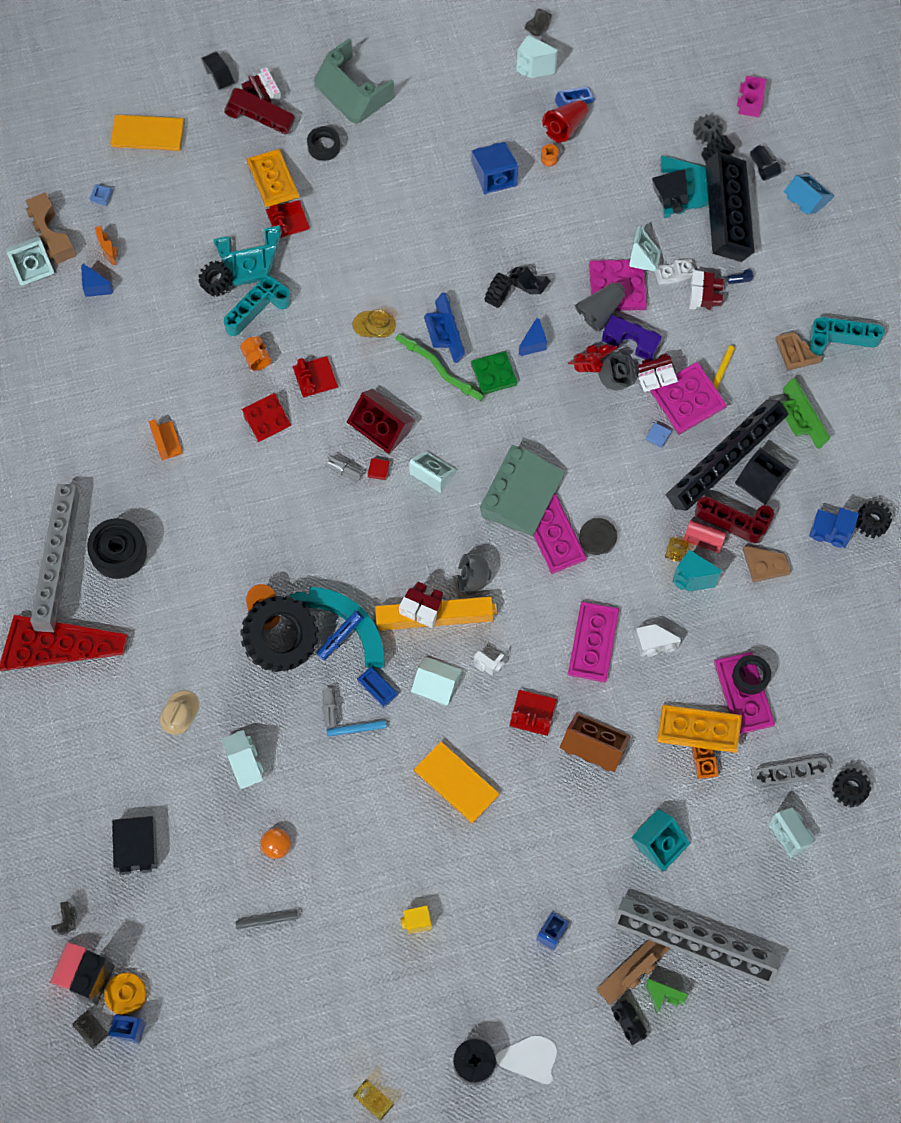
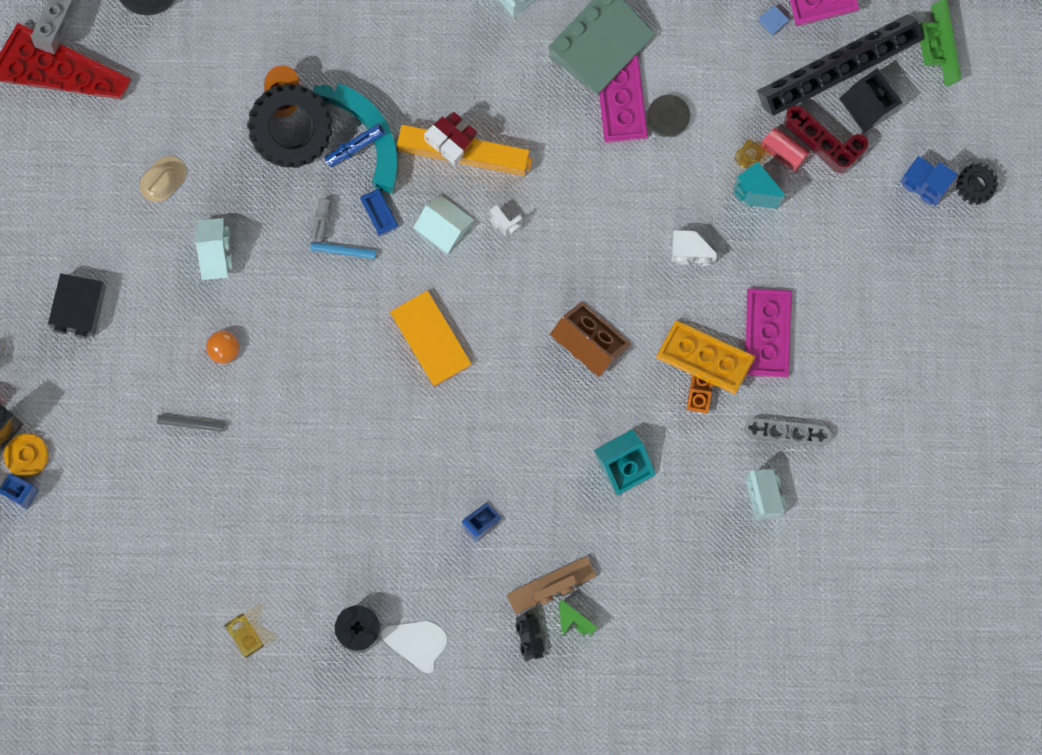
camera: 15 degrees right, 10 degrees up
(416, 920) = (343, 469): yellow brick -> none
(474, 573) = (519, 118): dark grey cylinder -> none
(533, 712) = (534, 288): red hinge -> none
(593, 642) = (625, 230): dark pink tile -> none
(697, 941) = (625, 576): light grey brick -> none
(753, 660) = (767, 326): black tyre -> none
(765, 564) = (840, 199): medium nougat wing -> none
(857, 777) = (859, 467): black tyre -> none

